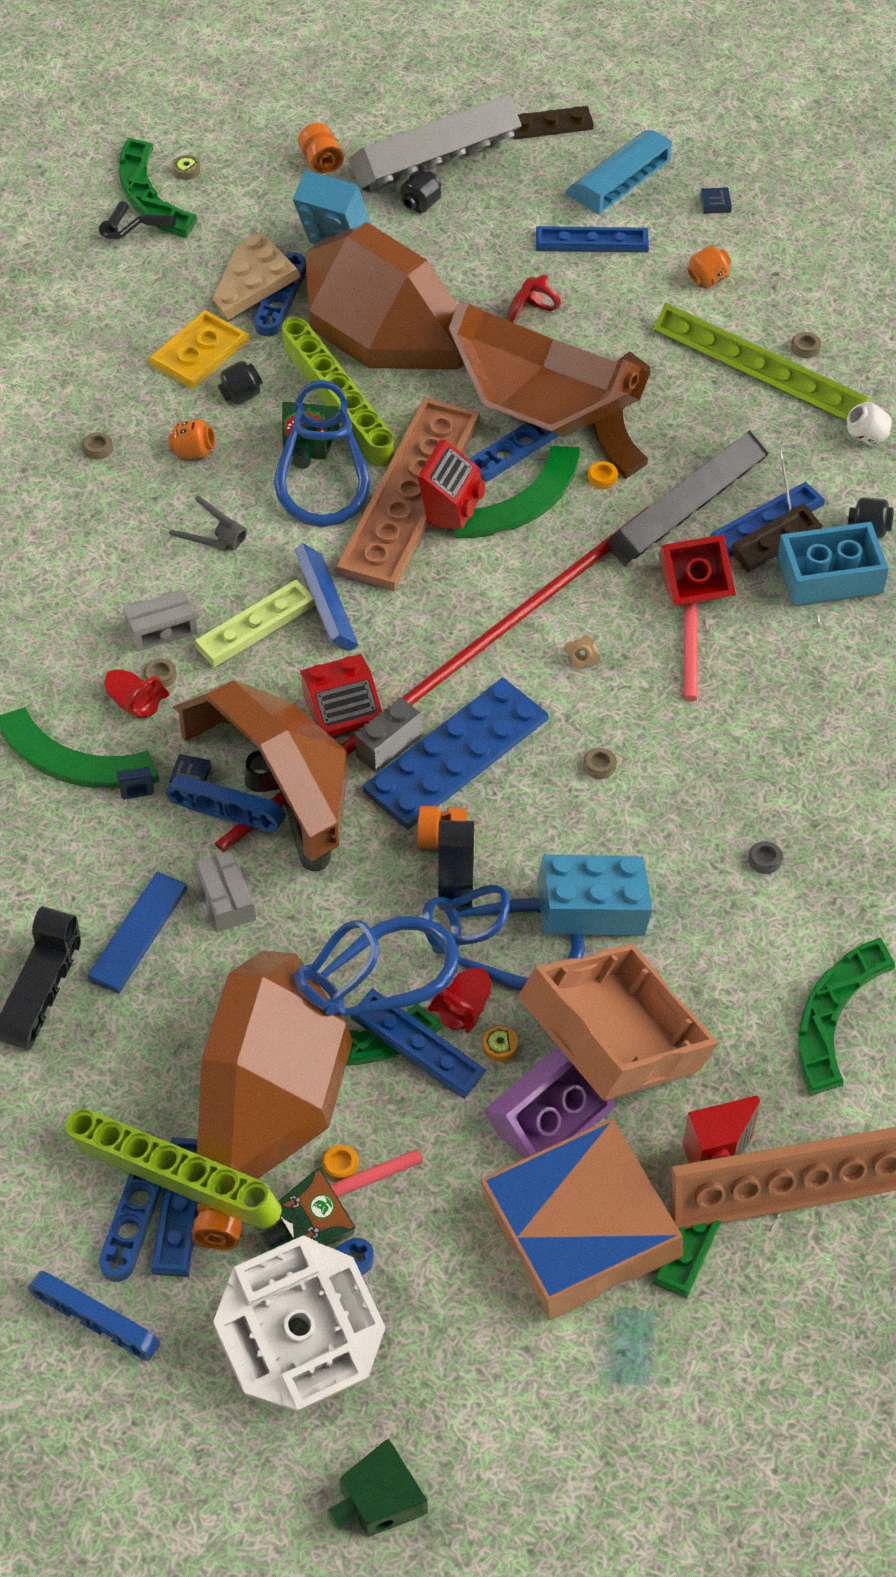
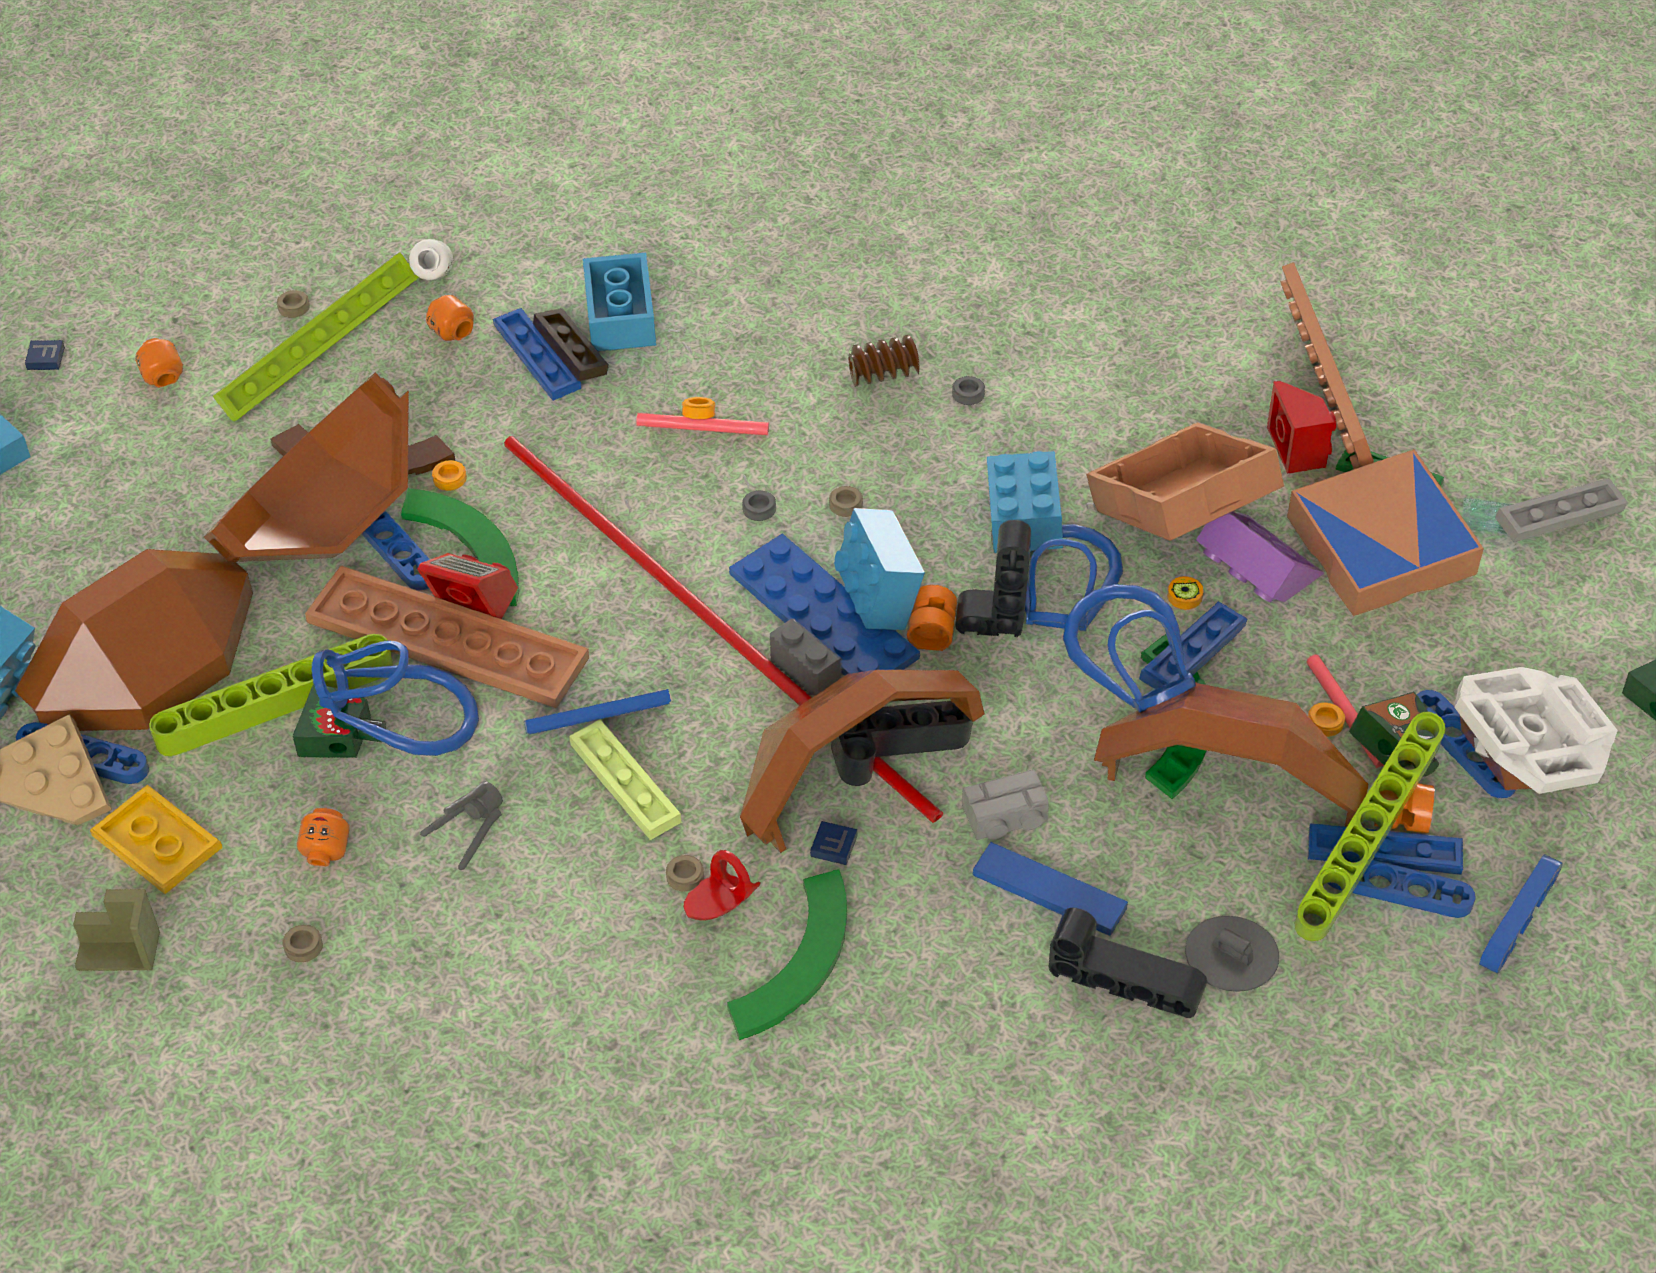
camera: 85 degrees left, 5 degrees down
(64, 1074) = (1232, 953): none -> dark grey shield
(96, 340) = (121, 937): none -> olive panel
(135, 782) = (853, 886): dark blue tile -> none
(160, 620) = (610, 866): light grey brick -> none
(226, 803) = (891, 799): blue beam -> none
(240, 382) = (236, 788): black head -> none
(341, 694) = (749, 694): slope -> none
(463, 999) = (1144, 626): red piece -> none
(481, 770) = (879, 569): none -> dark azure brick
(526, 295) = (169, 514): red piece -> none
(584, 643) = (703, 500): tan plate -> none
(587, 697) = (759, 505): none -> dark grey tile
(592, 239) = (74, 463): blue tile -> none
(637, 1404) = (1561, 510): none -> light grey plate
(686, 498) = (507, 404): beam -> none
(697, 570) = (611, 402): red slope -> none
(706, 640) = (698, 408): none -> light orange tile
(784, 474) = (497, 325): light grey piece -> none
(785, 776) = (883, 359): none -> reddish brown piece
(803, 454) = (449, 318): none -> orange head
(824, 1007) = (1142, 367): green tile -> none
(874, 511) = (558, 272): black head -> none

